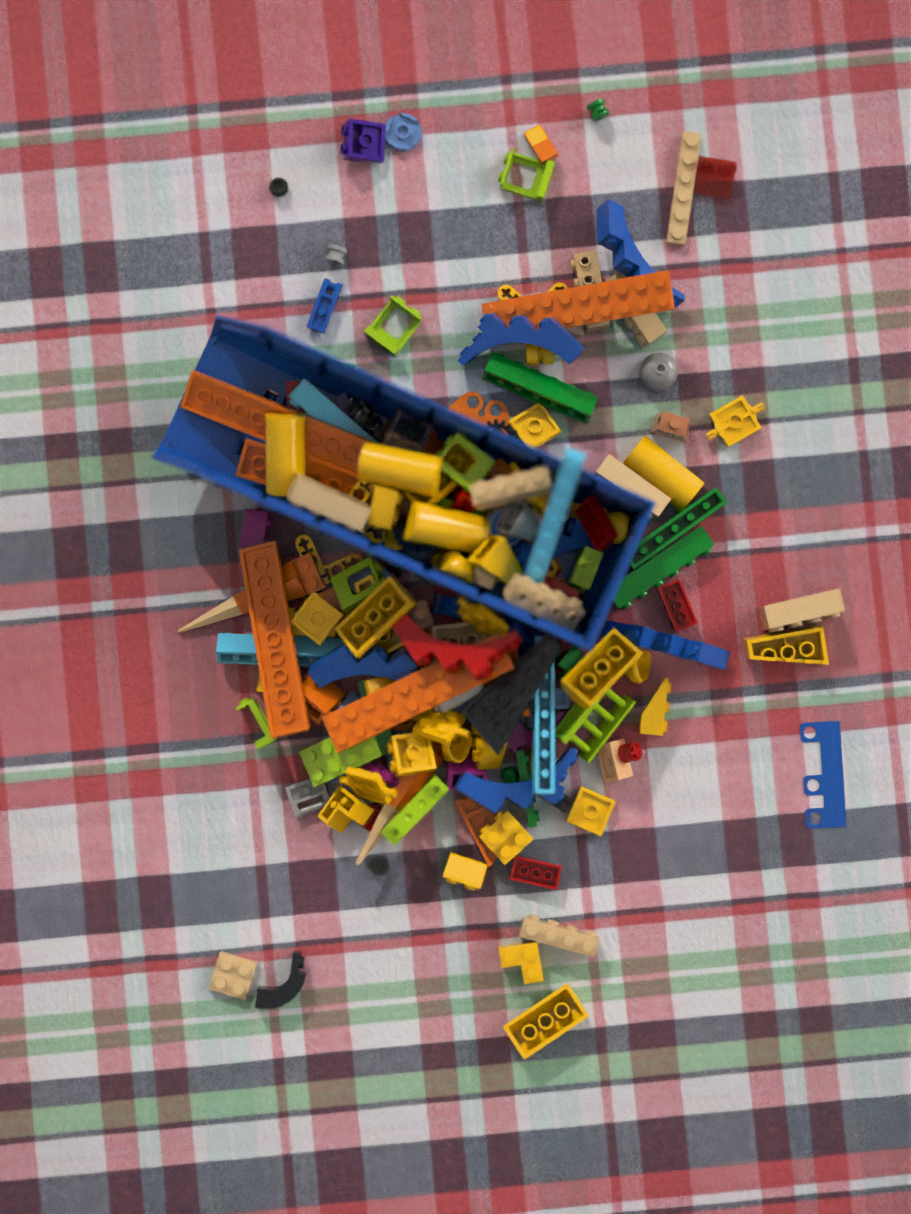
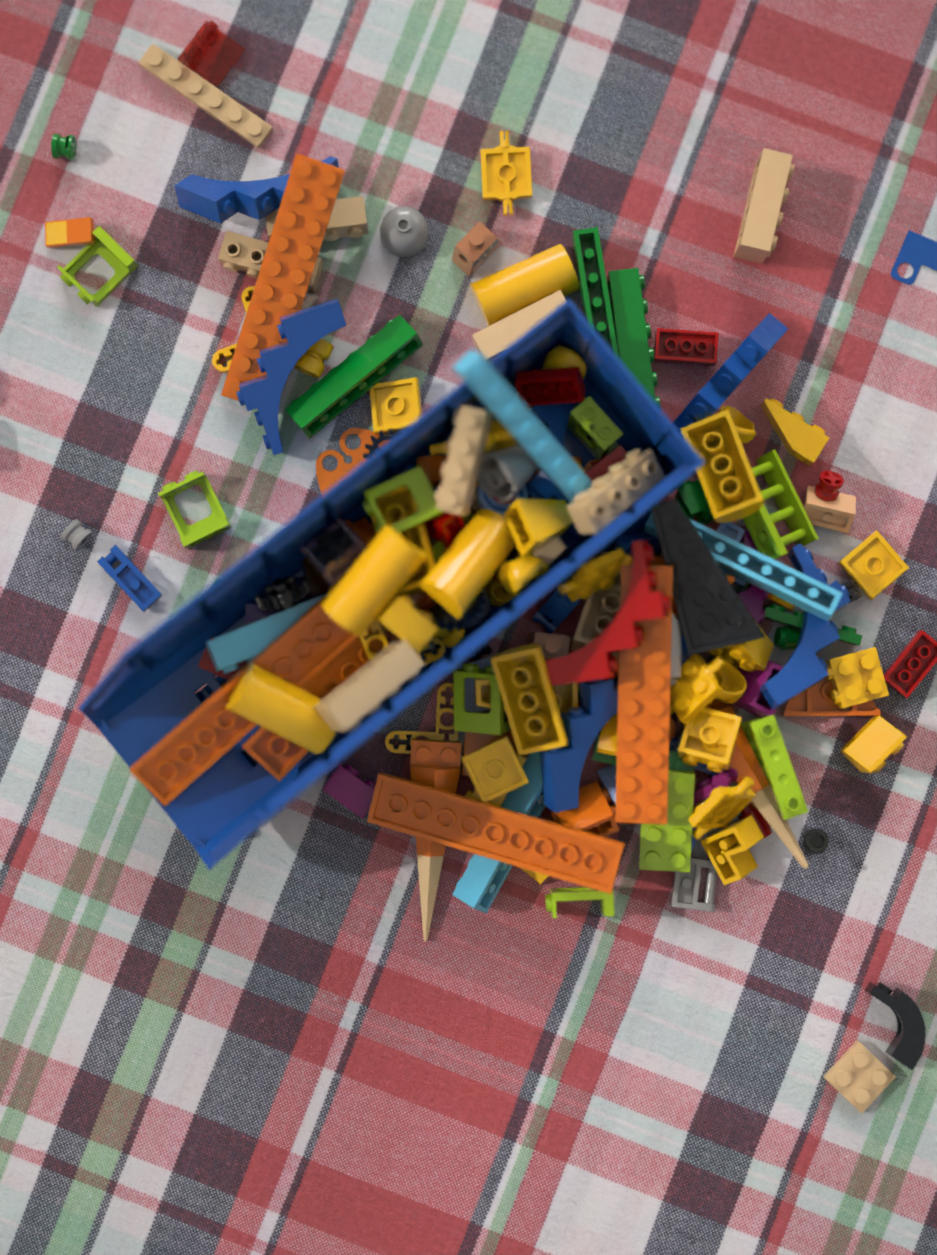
camera: 65 degrees left, 0 degrees up
(793, 645) = (799, 236): yellow wedge -> none

